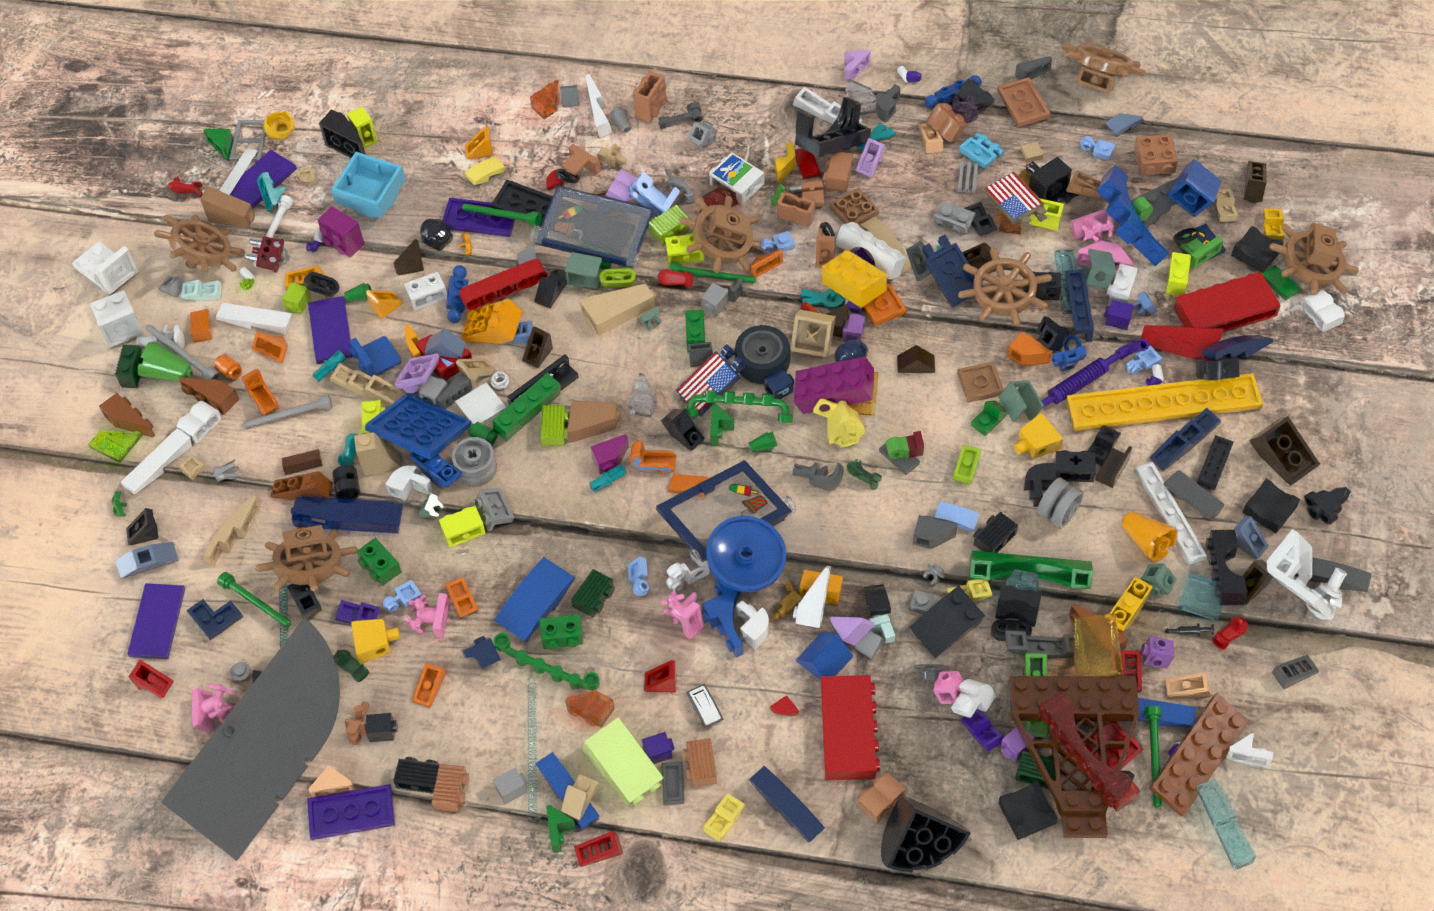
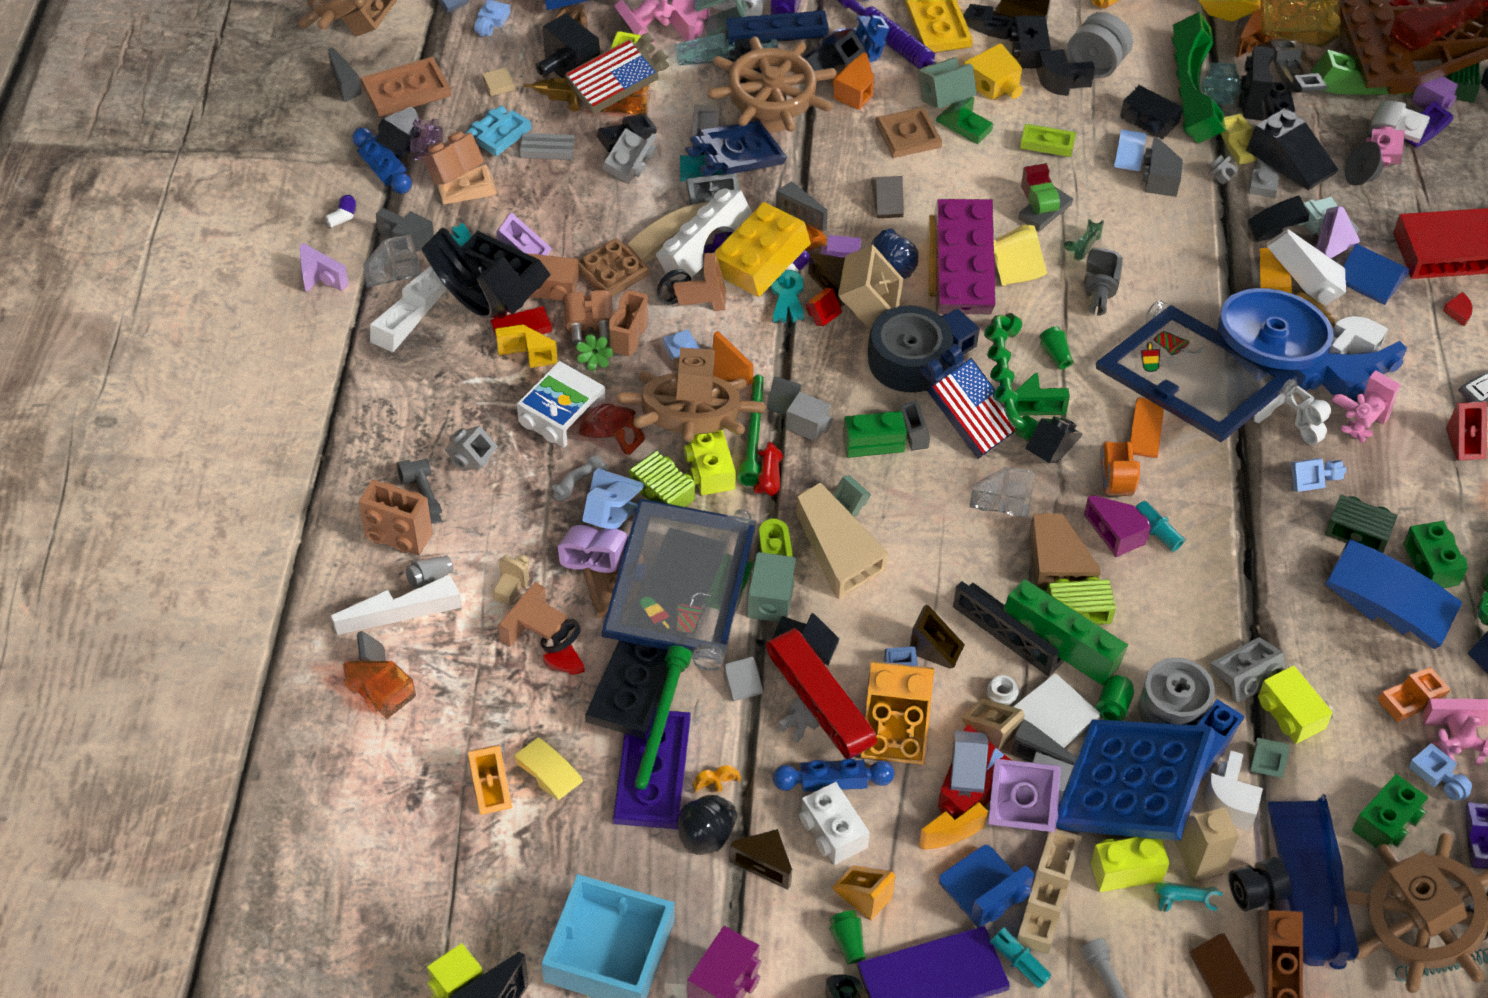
camera: 100 degrees left, 5 degrees down
(894, 304) = (801, 205): none -> dark grey slope

